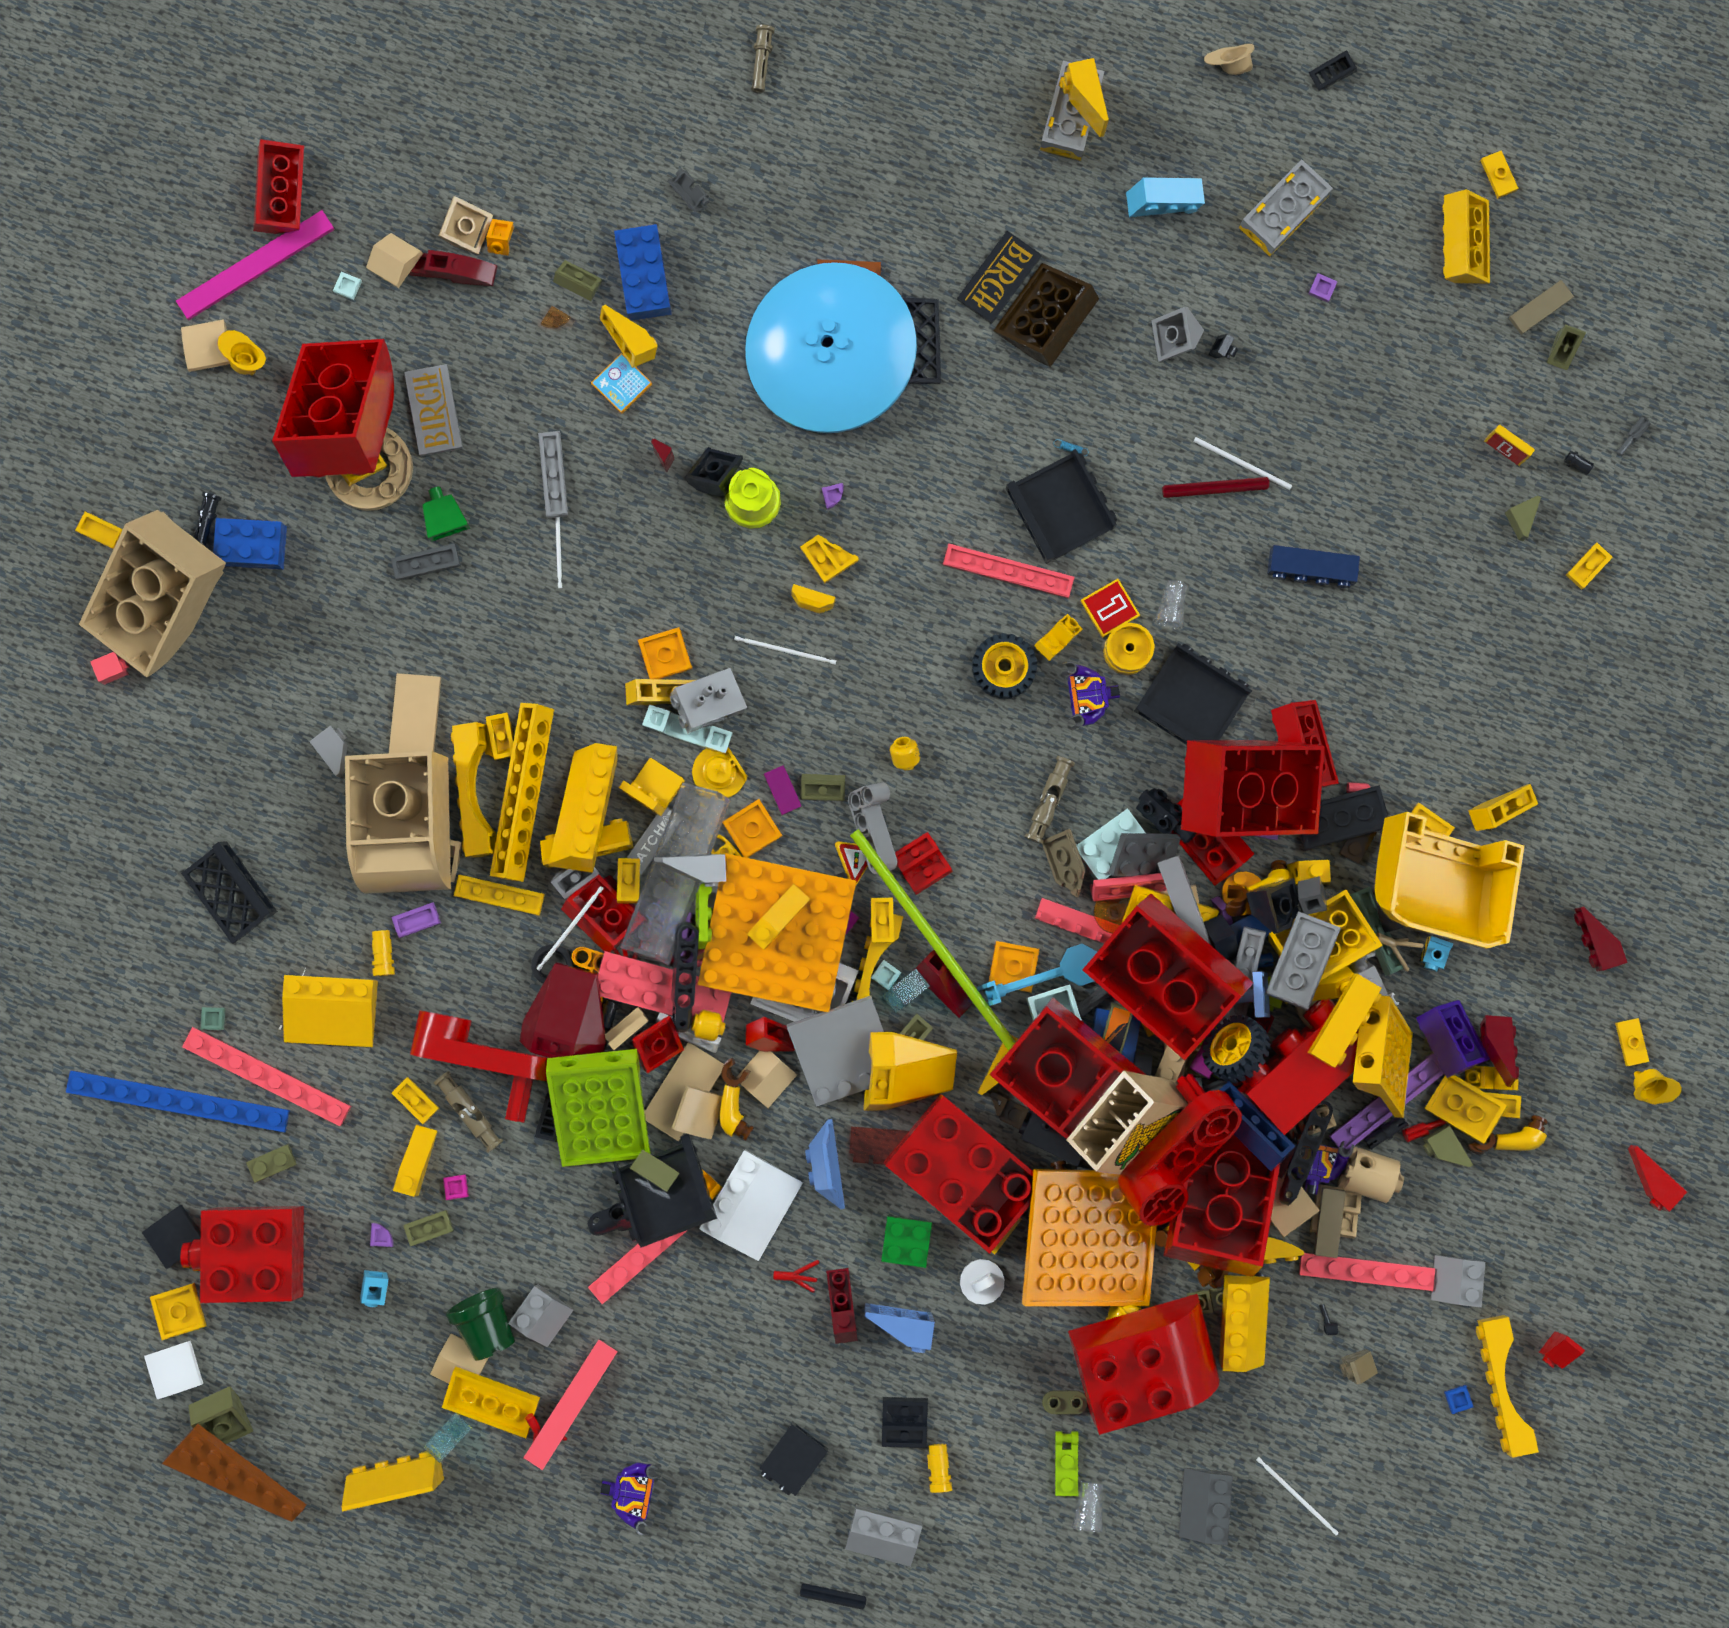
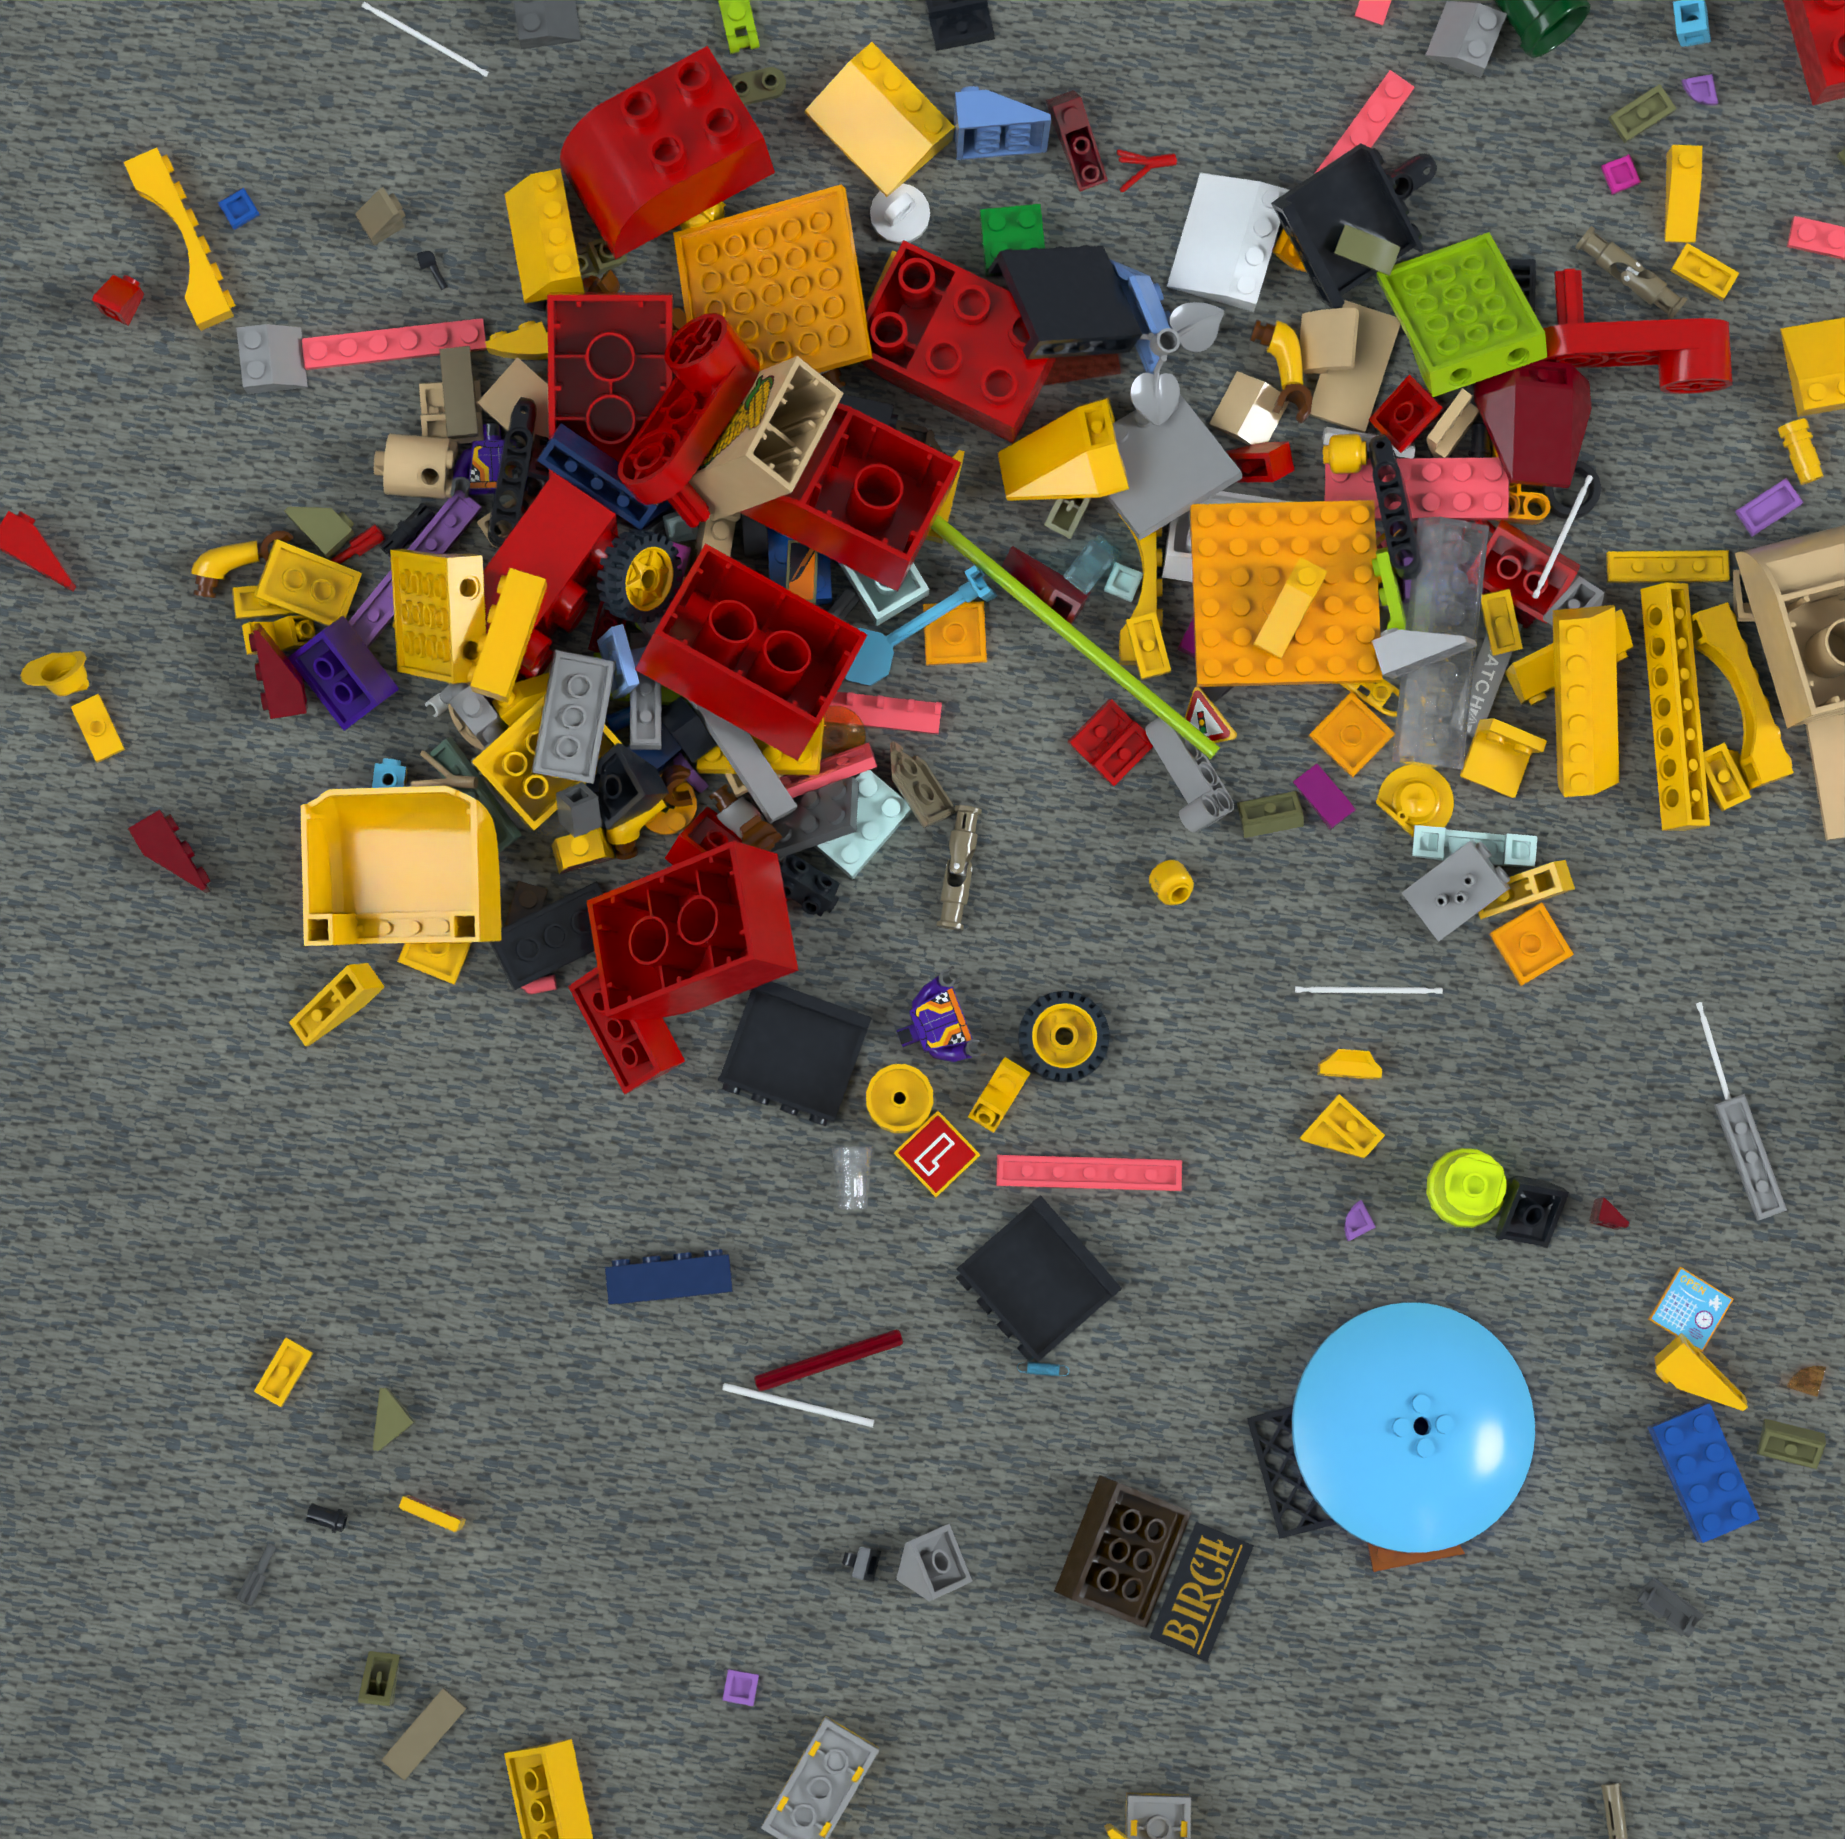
camera: 165 degrees right, 0 degrees up
(791, 1142) = (1192, 327): none -> light grey plant
(881, 1181) = (1068, 301): none -> black panel
(982, 1353) = (880, 120): none -> yellow slope
(1165, 196) = (993, 1763): medium azure wedge -> none
(1191, 854) = (744, 820): none -> reddish brown piece

